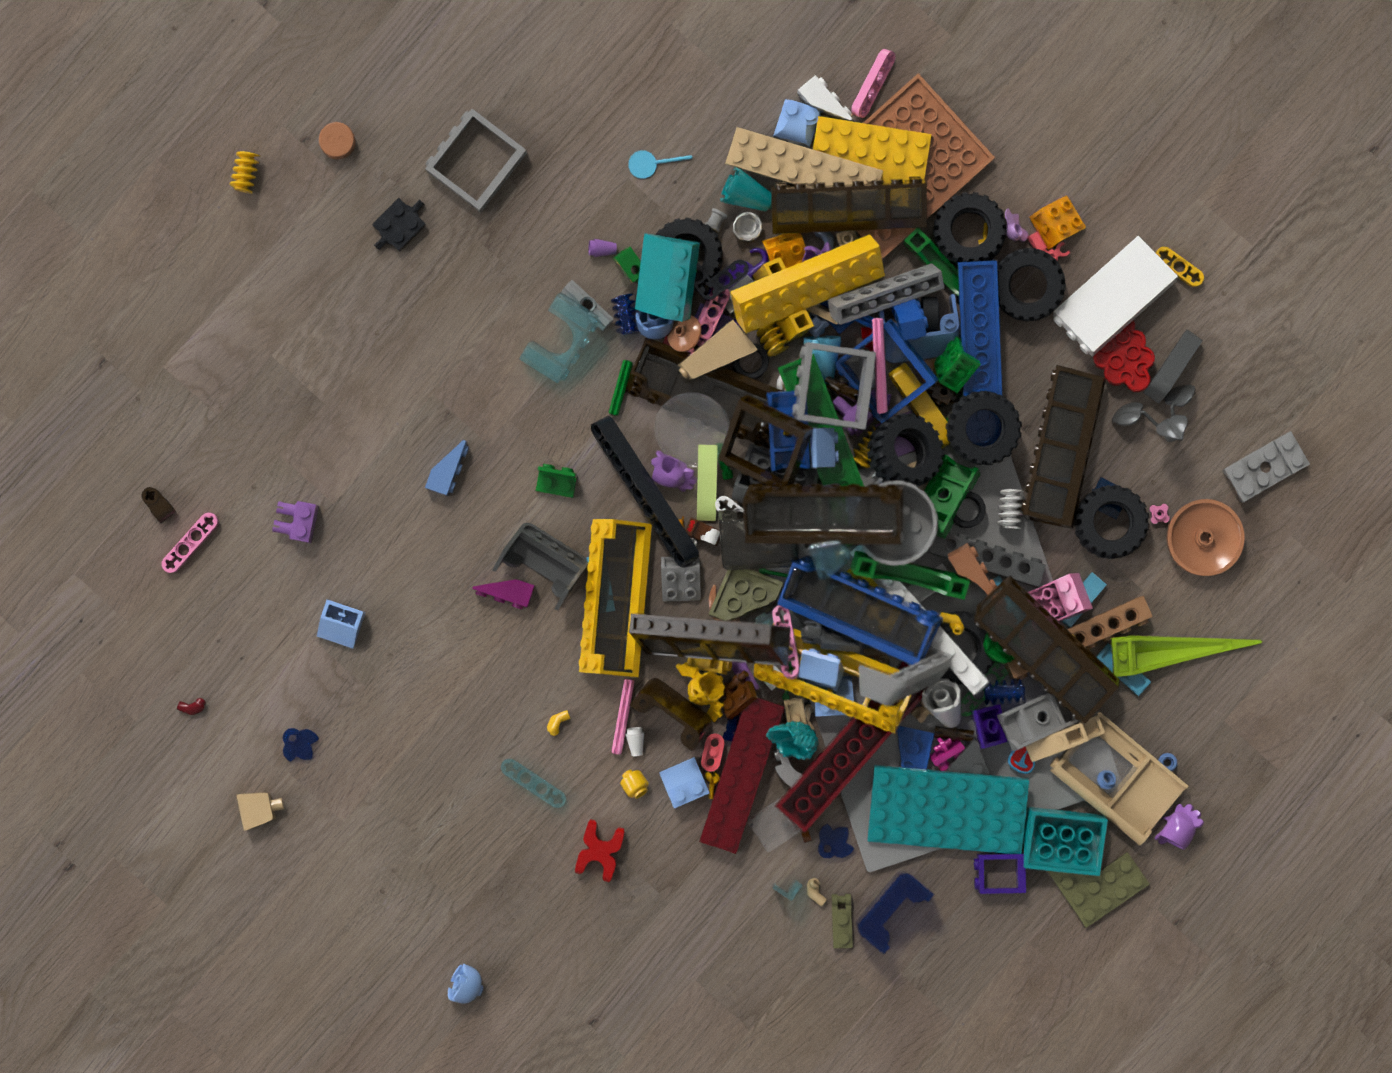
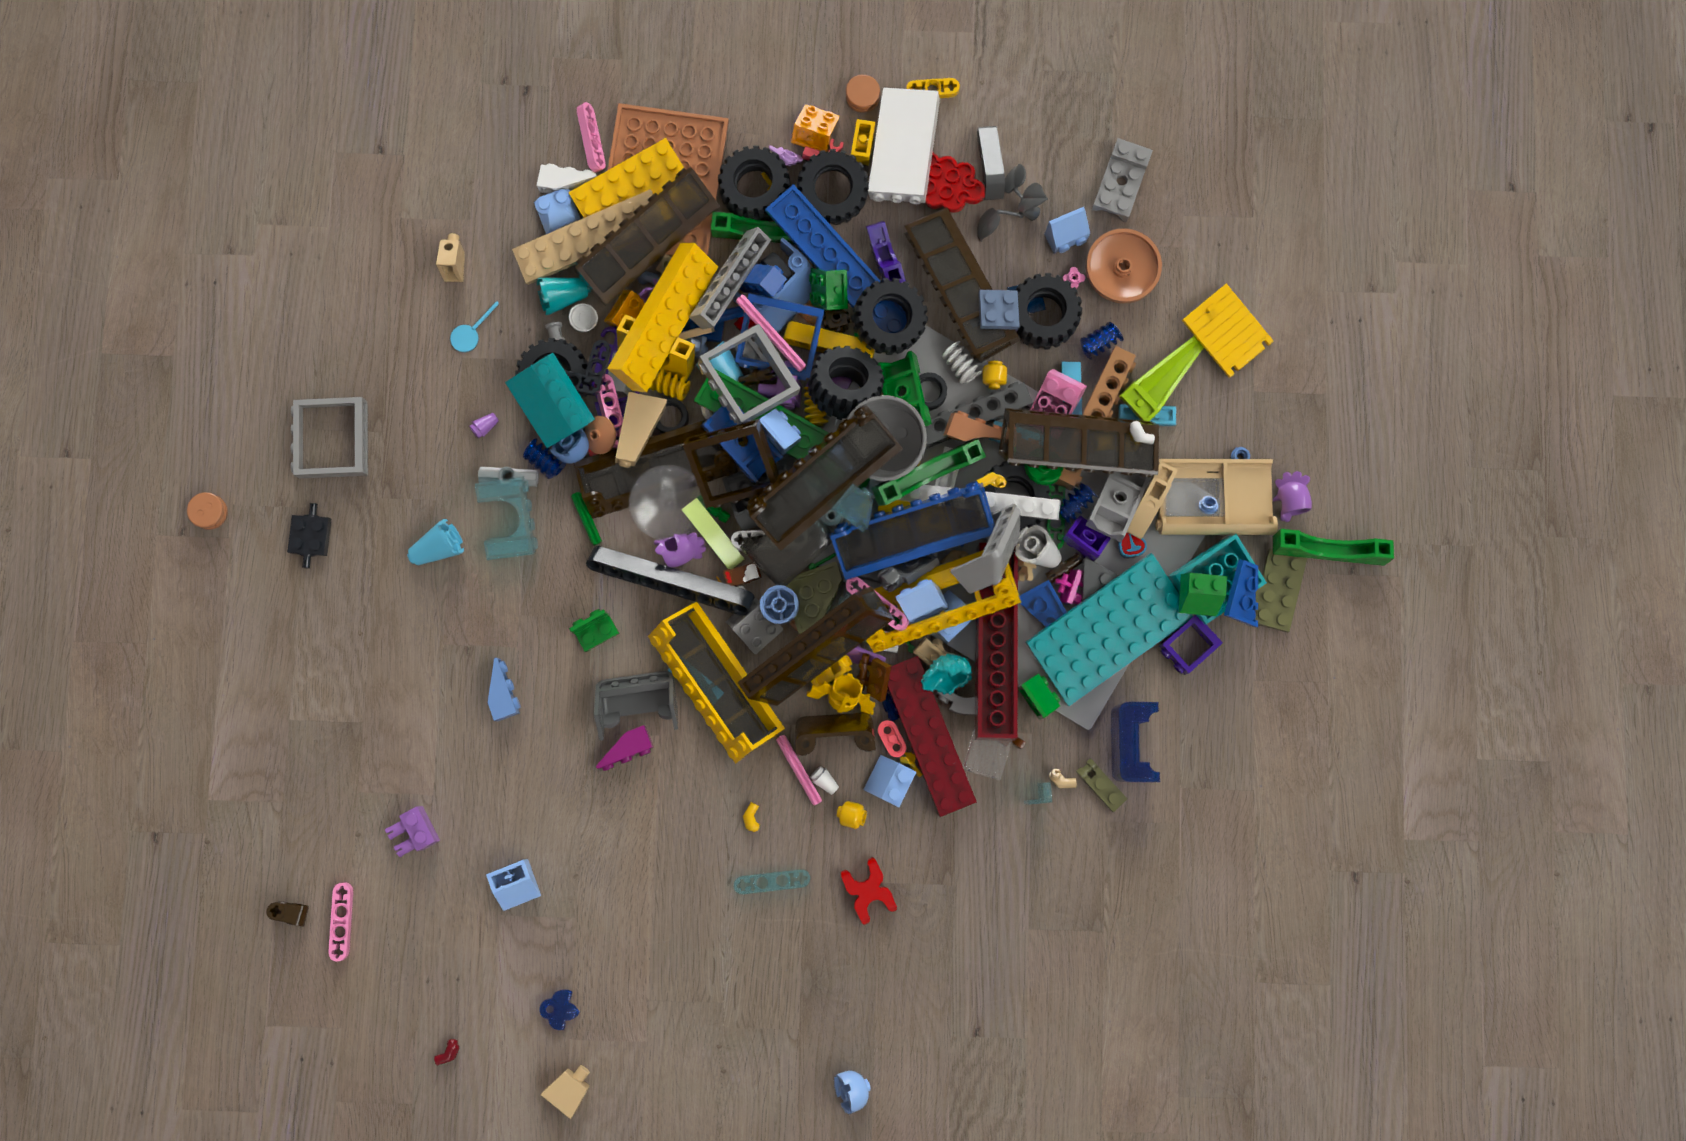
camera: 45 degrees left, 5 degrees down
(243, 171) = (148, 593): yellow piece -> none
(490, 314) = (437, 544): none -> medium azure cone
(626, 260) = (510, 416): green torso -> none
(683, 93) = (451, 259): none -> tan torso
(712, 580) = (779, 604): none -> light blue cylinder
(837, 841) = (1045, 727): clear blue plate -> none
(850, 815) = (1039, 696): none -> green slope
(1024, 372) = (883, 252): none -> dark purple arch
(1028, 539) = (994, 375): none -> yellow head
(1038, 842) = (1201, 594): none -> green slope
(1070, 870) = (1242, 597): none -> blue wing
(1073, 493) = (998, 309): none -> sand blue plate
(1084, 266) = (863, 141): none -> yellow brick
(1095, 682) = (1139, 435): none -> white arm
(1119, 225) = (862, 93): none -> nougat head
(1136, 580) = (1099, 339): none -> clear blue piece
(1153, 871) = (1299, 544): none -> green arch
(1185, 474) = (1068, 231): none -> light blue slope
(1244, 656) = (1227, 330): none -> yellow door

